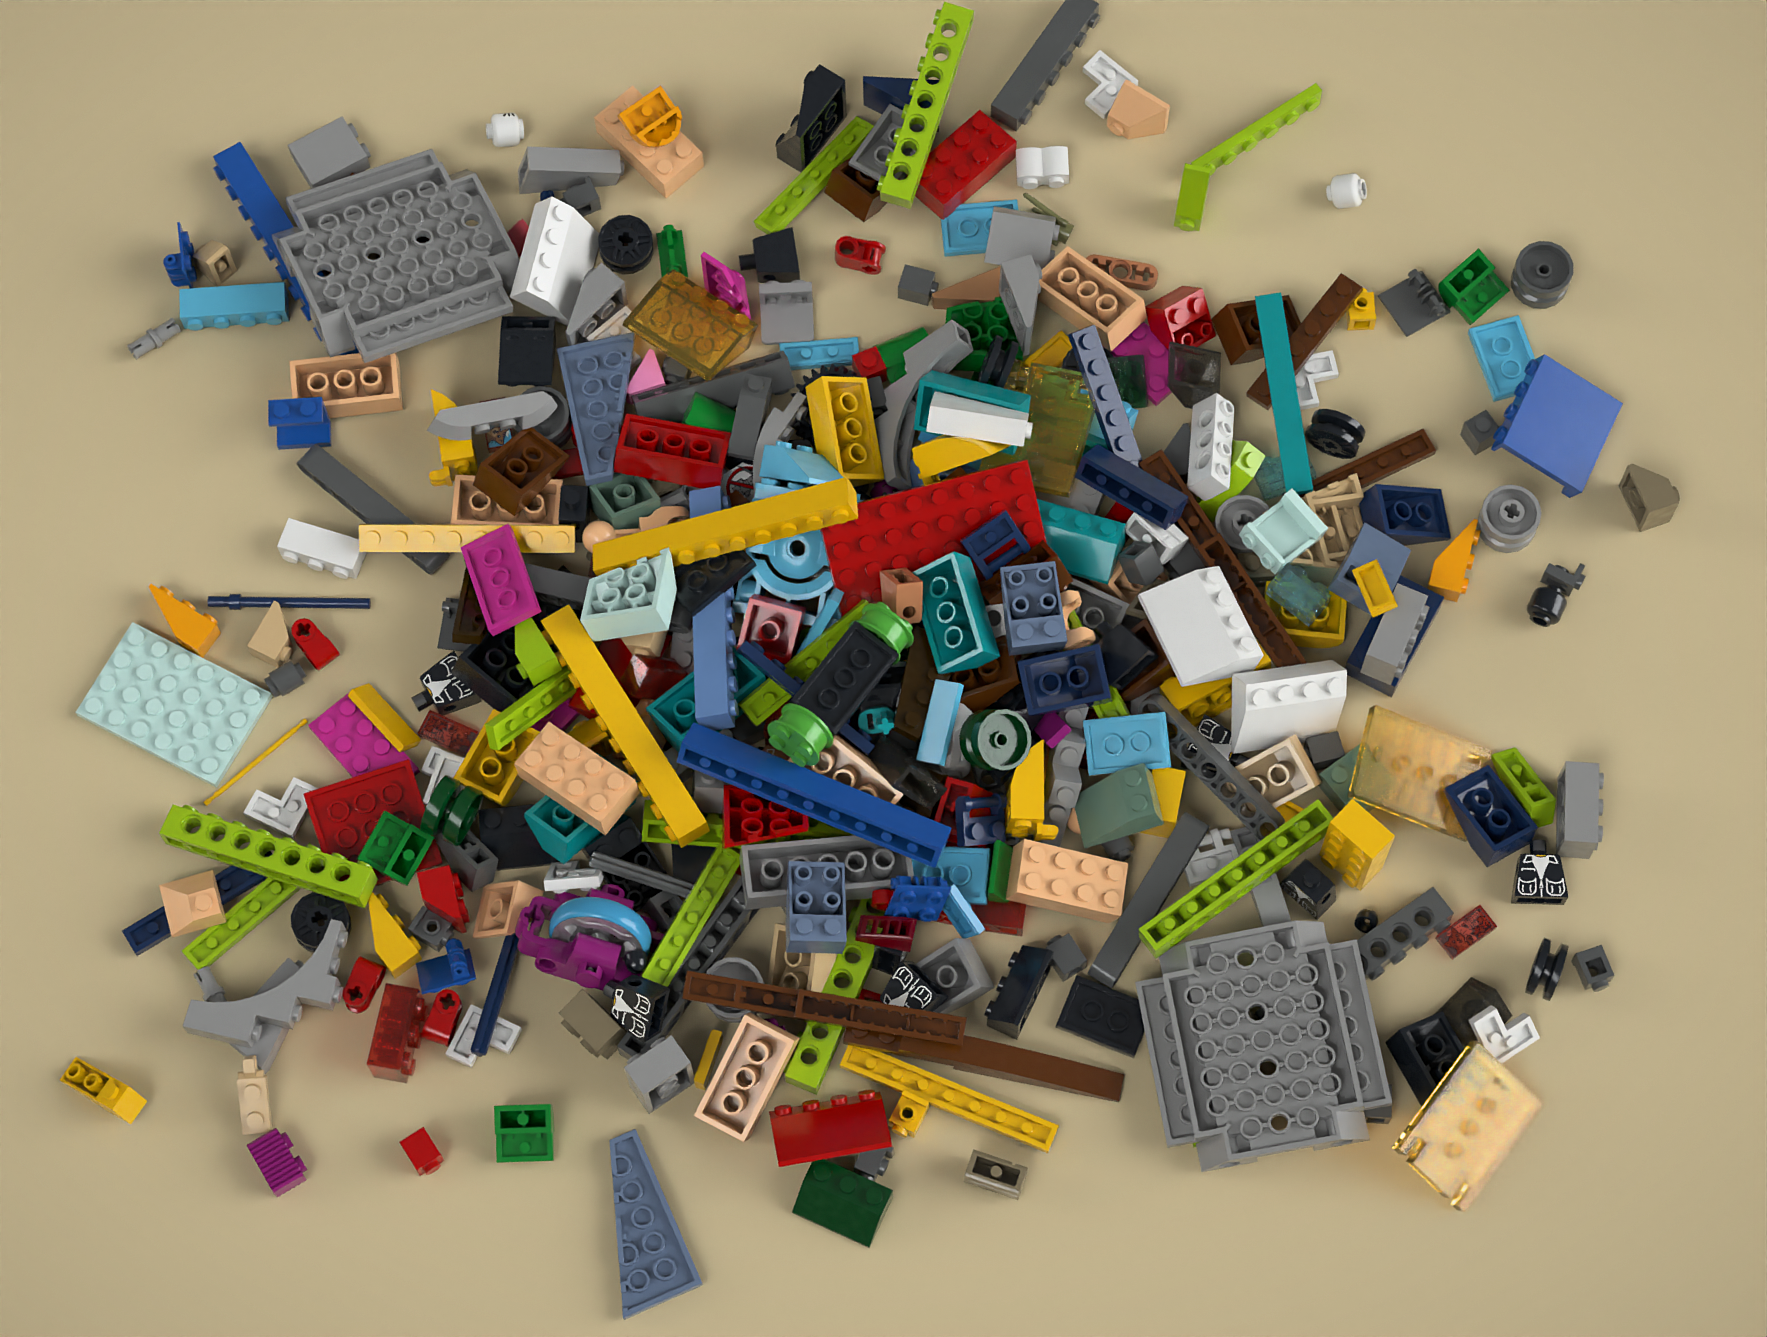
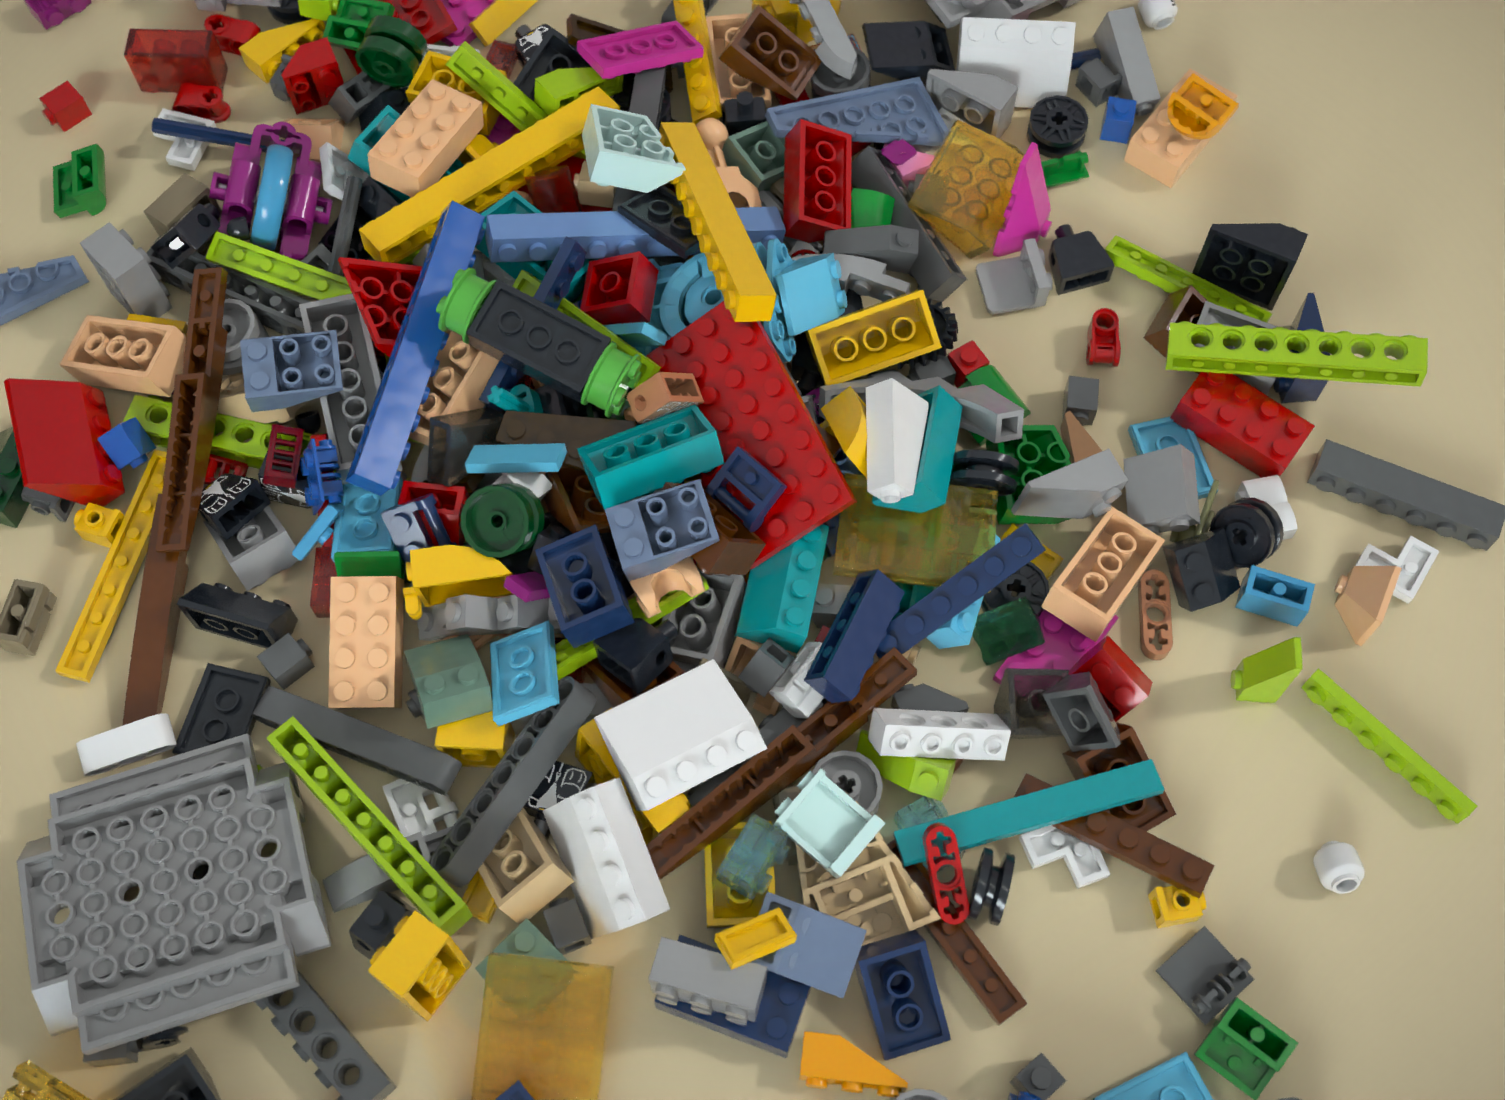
camera: 80 degrees right, 5 degrees down
(446, 970) = (247, 94): blue hinge -> none
(630, 191) = (1118, 119): none -> blue brick
(641, 381) = (894, 150): none -> magenta piece
(820, 352) = (977, 320): medium azure tile -> none
(838, 1081) = (127, 444): none -> blue brick
(1067, 185) = (1262, 528): none -> black wheel
(1094, 227) = (1202, 569): none -> black slope
(1123, 178) = (1275, 595): none -> dark azure brick
(1126, 1088) = (126, 744): none -> white beam
(1212, 336) = (1082, 713): none -> dark grey slope
(1334, 456) = (960, 896): none -> red beam
(1360, 919) = (350, 1007): black hinge -> none

